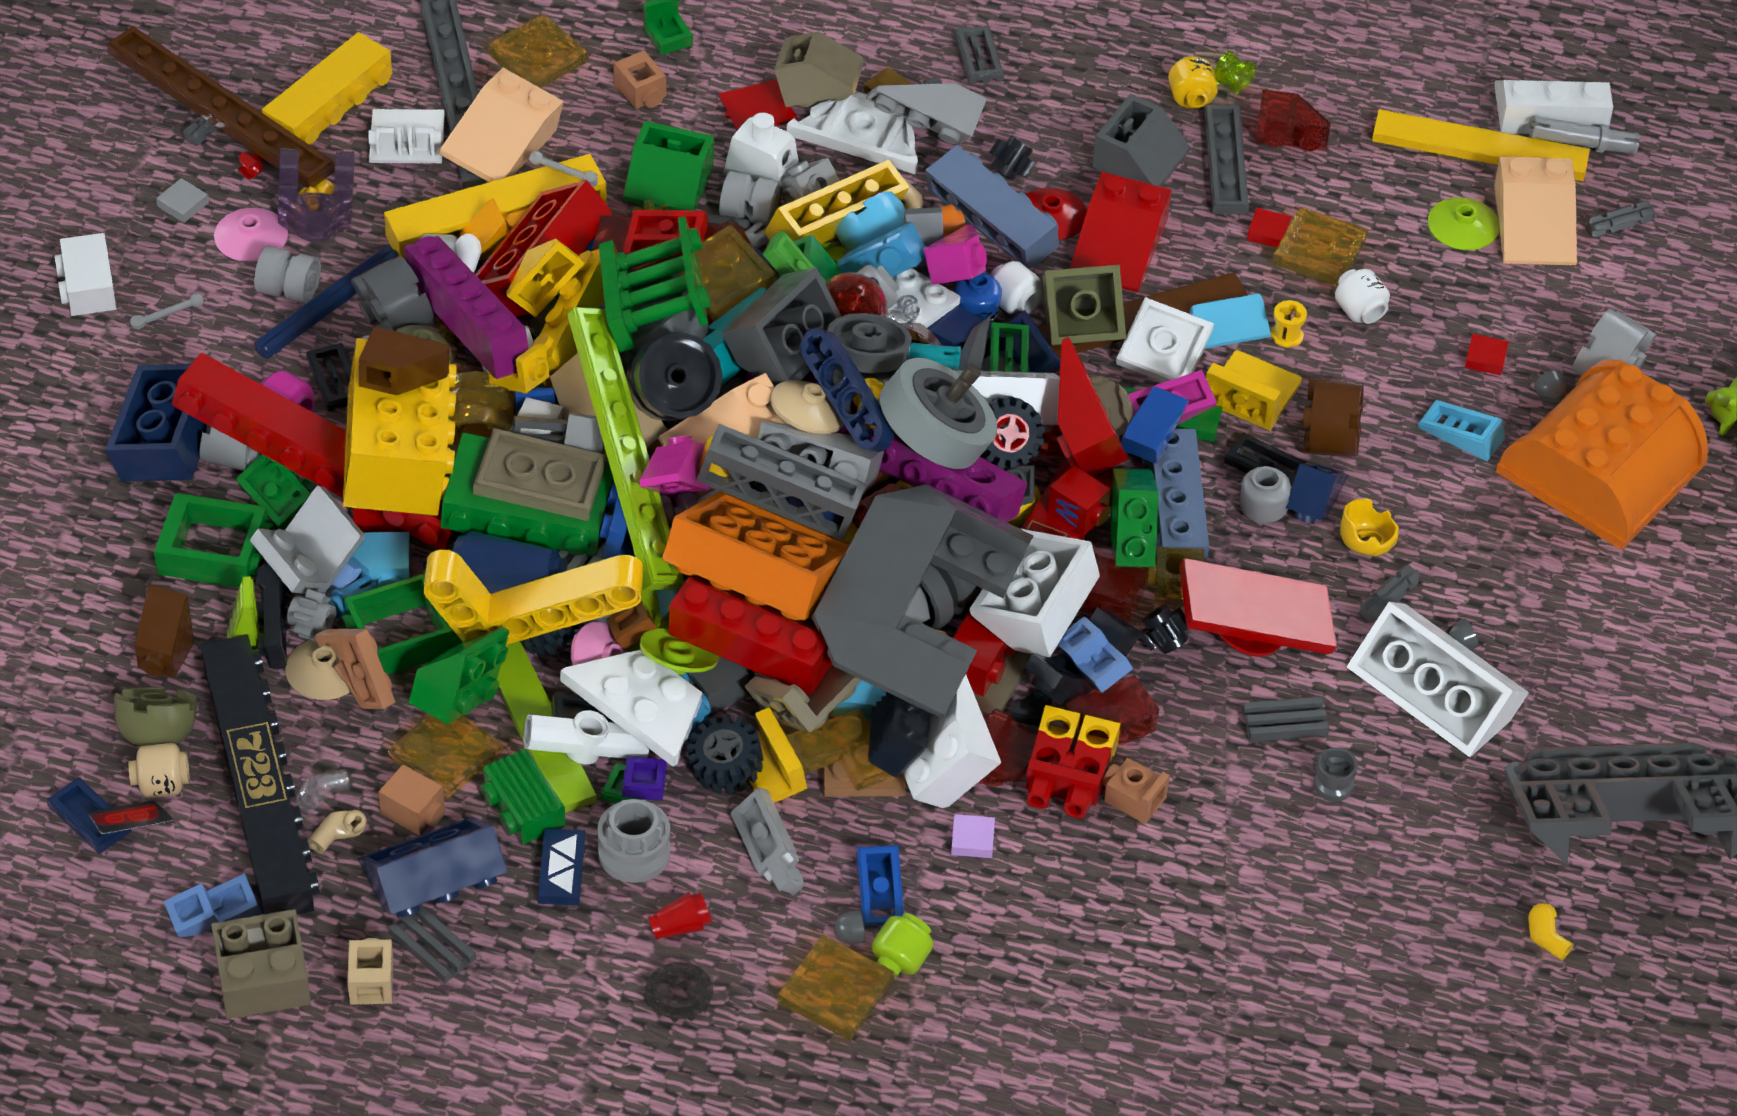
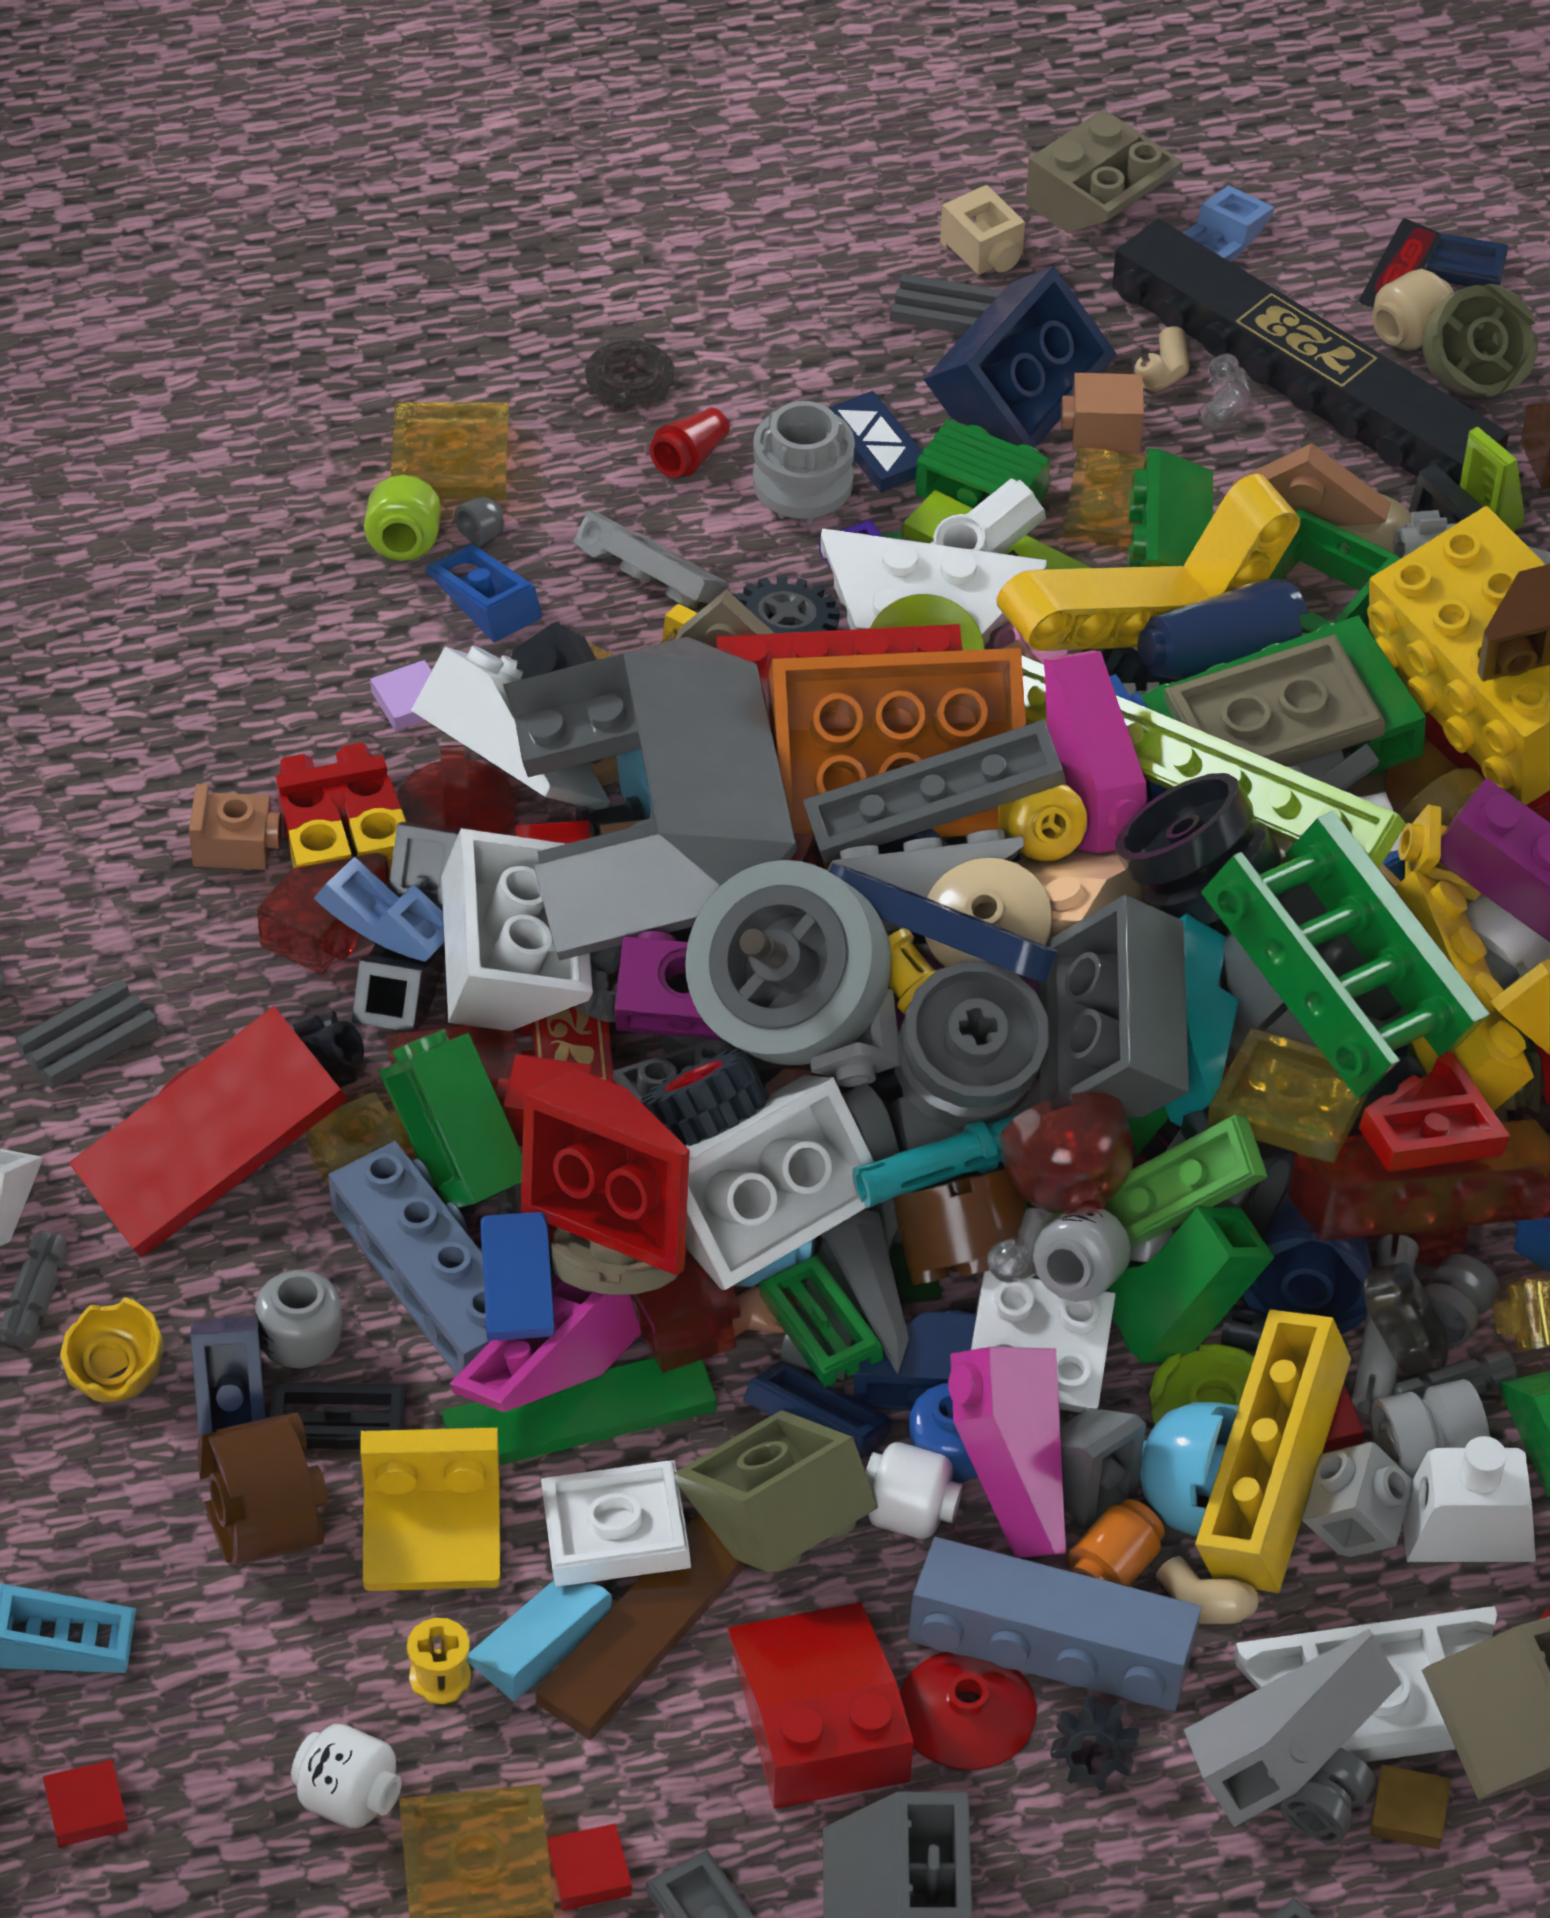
camera: 150 degrees right, 0 degrees up
(895, 251) = (1123, 1359): dark azure brick -> none

